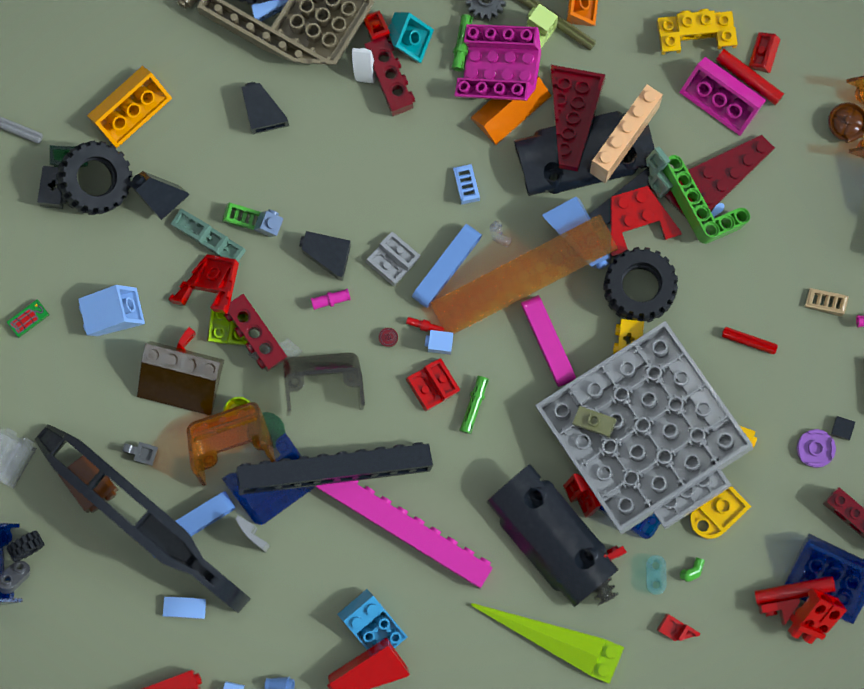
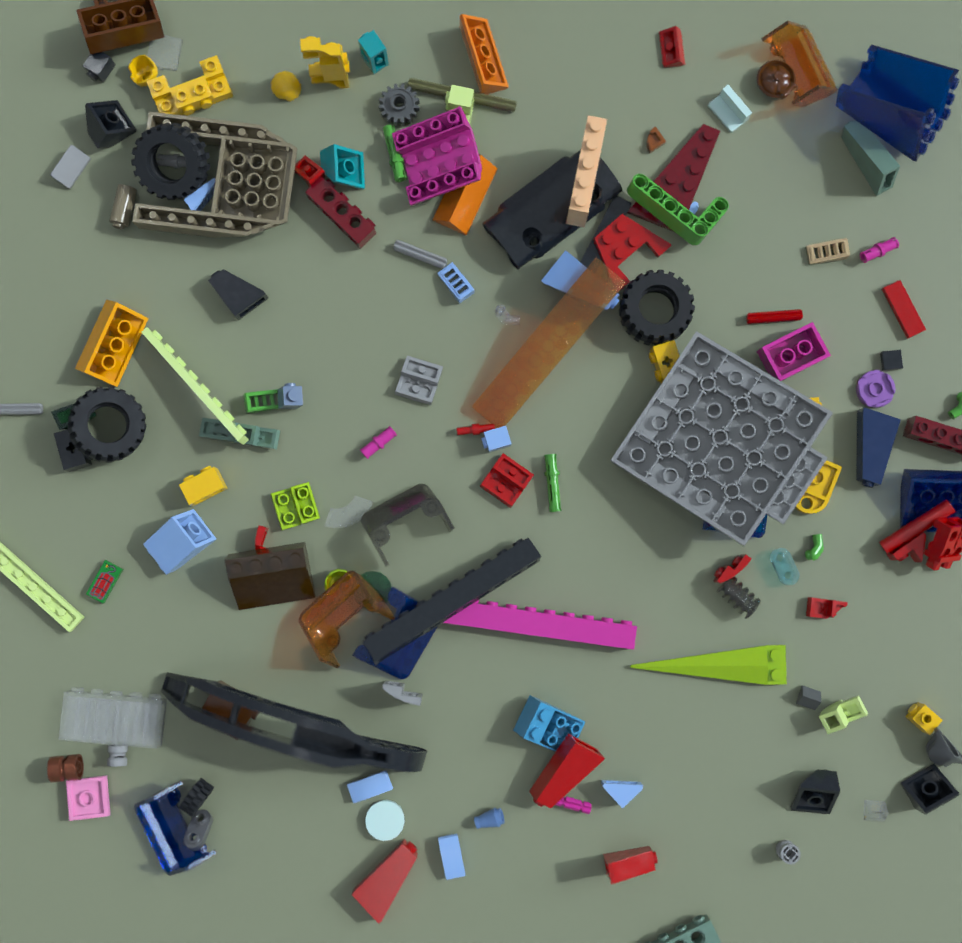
camera: 30 degrees left, 5 degrees up
(143, 453) = (268, 660): dark grey plate -> none
(154, 270) = (202, 486): none -> yellow brick
(158, 193) = (174, 413): black slope -> none
(184, 644) = (385, 820): none -> light aqua tile
(191, 183) = (201, 390): none -> yellowish green plate
(206, 514) = (350, 693): medium blue beam -> none
(211, 275) = (260, 467): red wing -> none
(242, 306) = (299, 484): dark red brick -> none
(327, 252) = (355, 400): black slope -> none
(363, 65) = (312, 212): white slope -> none
(388, 337) = (446, 454): dark red tile -> none
(445, 144) = (420, 254): none -> light grey axle
(446, 265) = (471, 366): medium blue beam -> none
(548, 341) = (594, 395): dark pink beam -> none
(552, 535) = (679, 573): black panel -> none
(575, 104) = (524, 166): dark red wing -> none
(578, 489) = (683, 519): red slope -> none
(594, 421) = (674, 453): olive plate -> none
(657, 180) = (629, 204): sand green tile -> none
(694, 26) = (602, 48): yellow bracket -> none
(709, 131) = (654, 140): none -> dark orange tile
(722, 96) = (653, 103): dark pink slope -> none
(749, 77) = (669, 75): red piece -> none
(750, 381) = (793, 352): none -> dark pink brick
(792, 132) = (730, 109): none -> light aqua panel
(792, 495) = (874, 444): none -> dark blue slope

